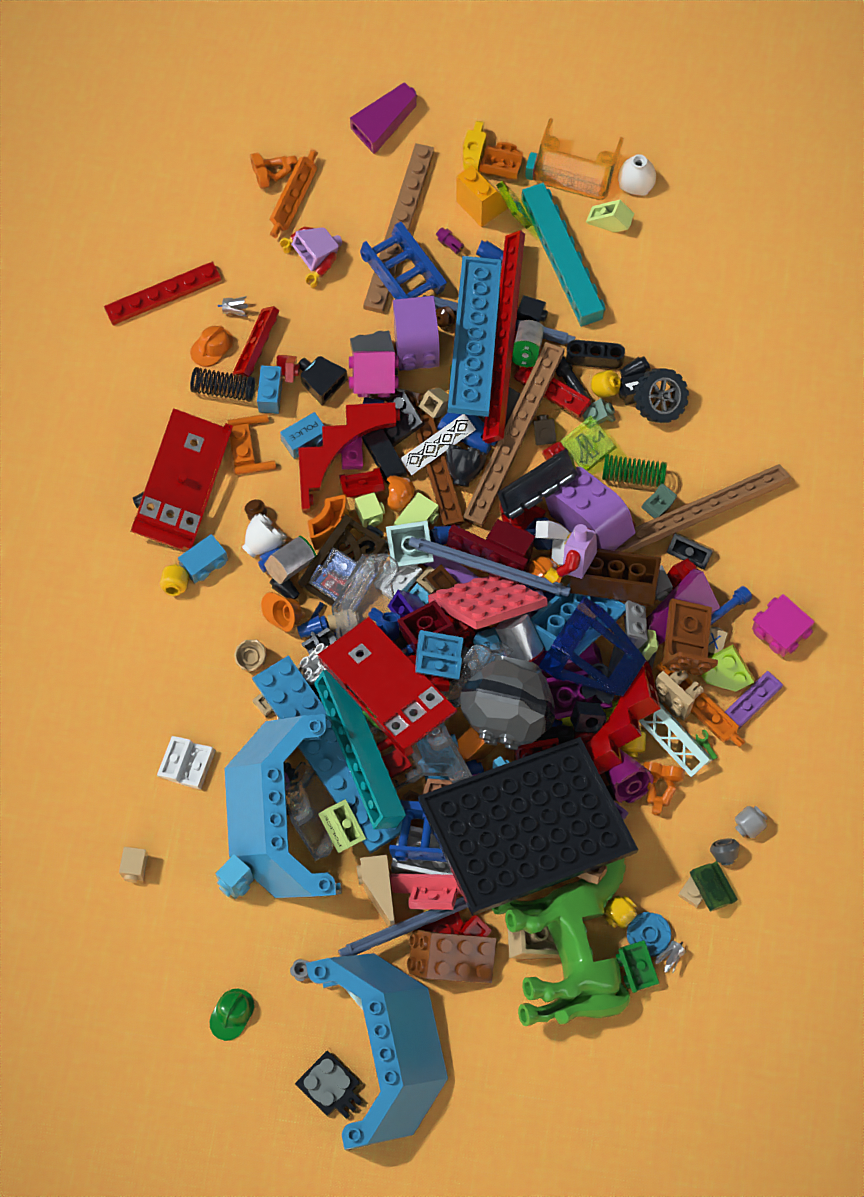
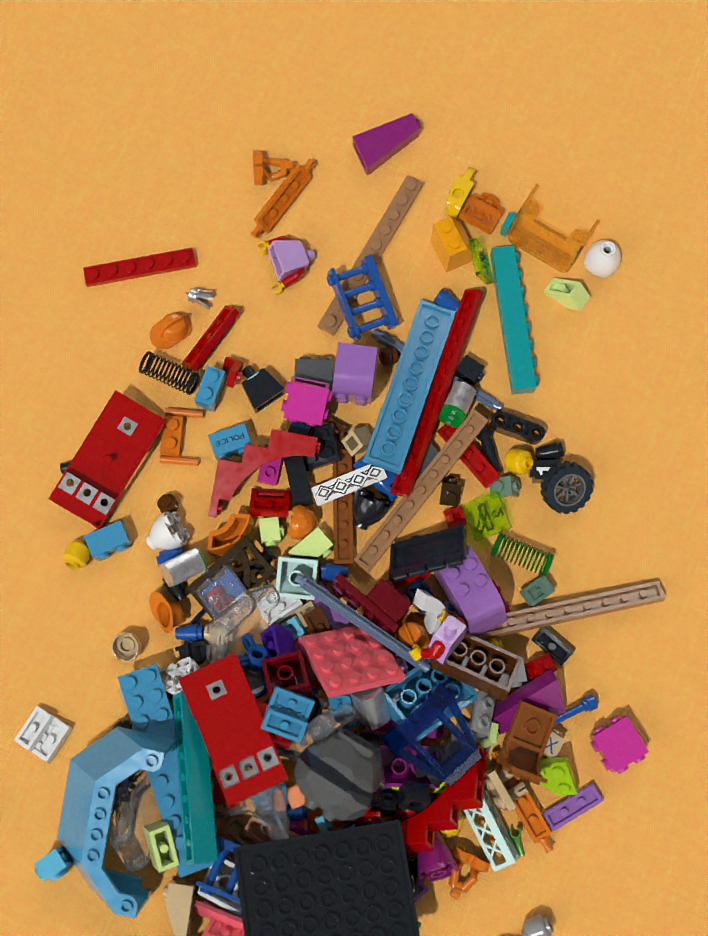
camera: 10 degrees right, 10 degrees up
(445, 237) = (411, 276): magenta animal -> none

